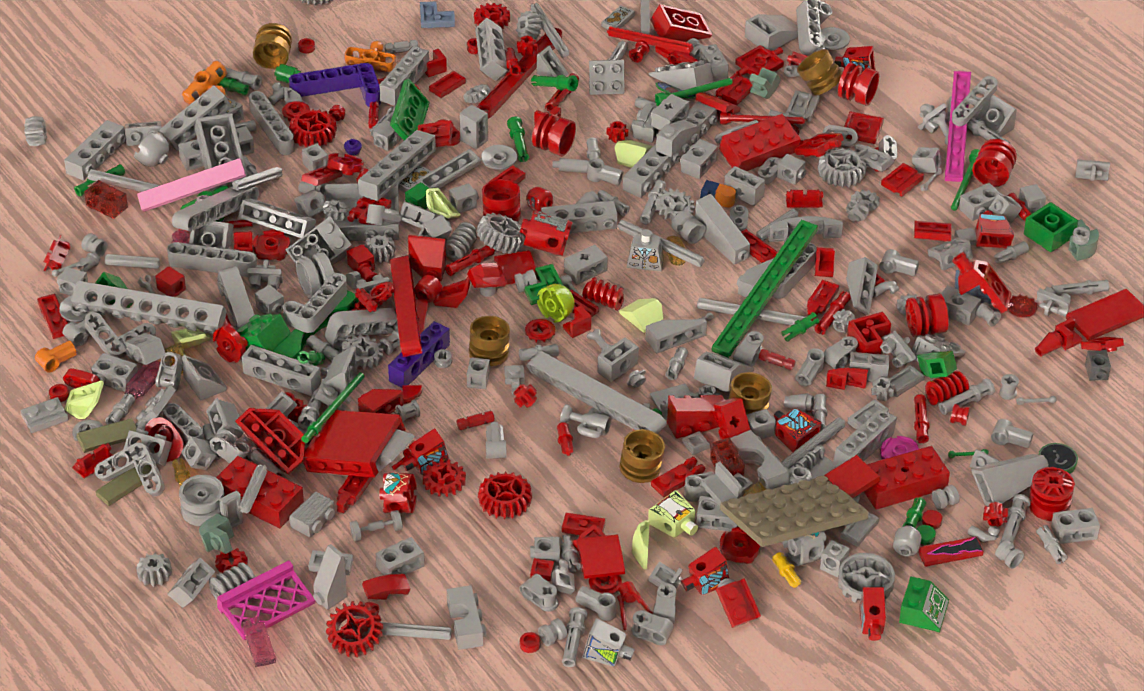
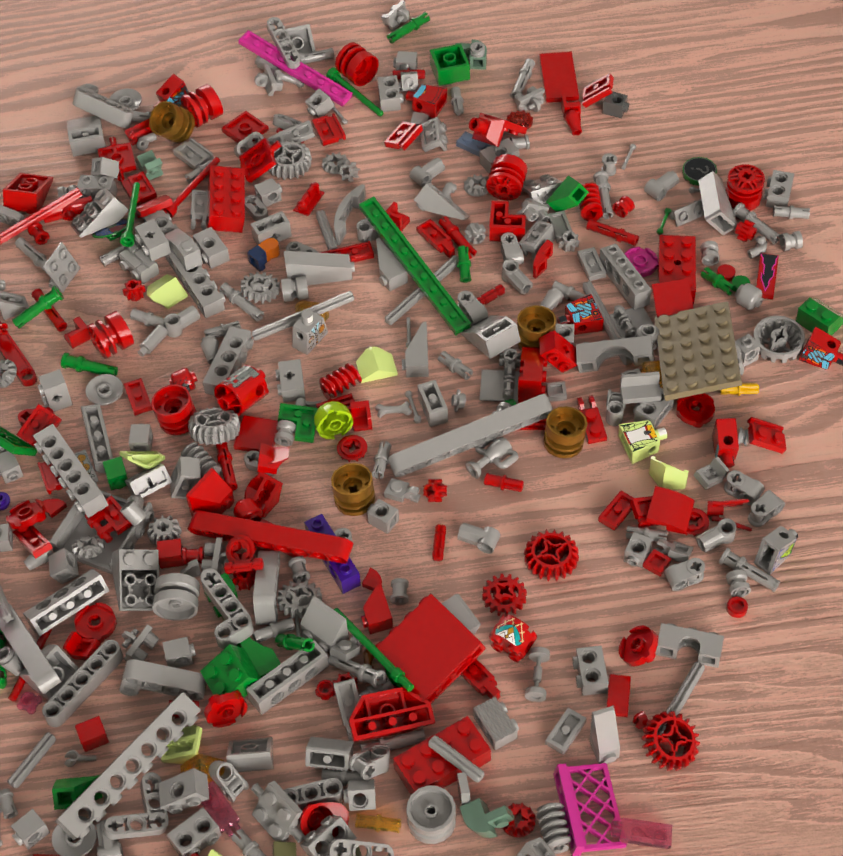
camera: 60 degrees left, 10 degrees up
(425, 451) = (472, 591): red torso -> none
(438, 579) = (645, 640): none -> red plate
(726, 453) = (600, 376): clear red brick -> none
(733, 55) = (105, 167): none -> light grey brick
(1084, 184) = (414, 24): none -> green pin

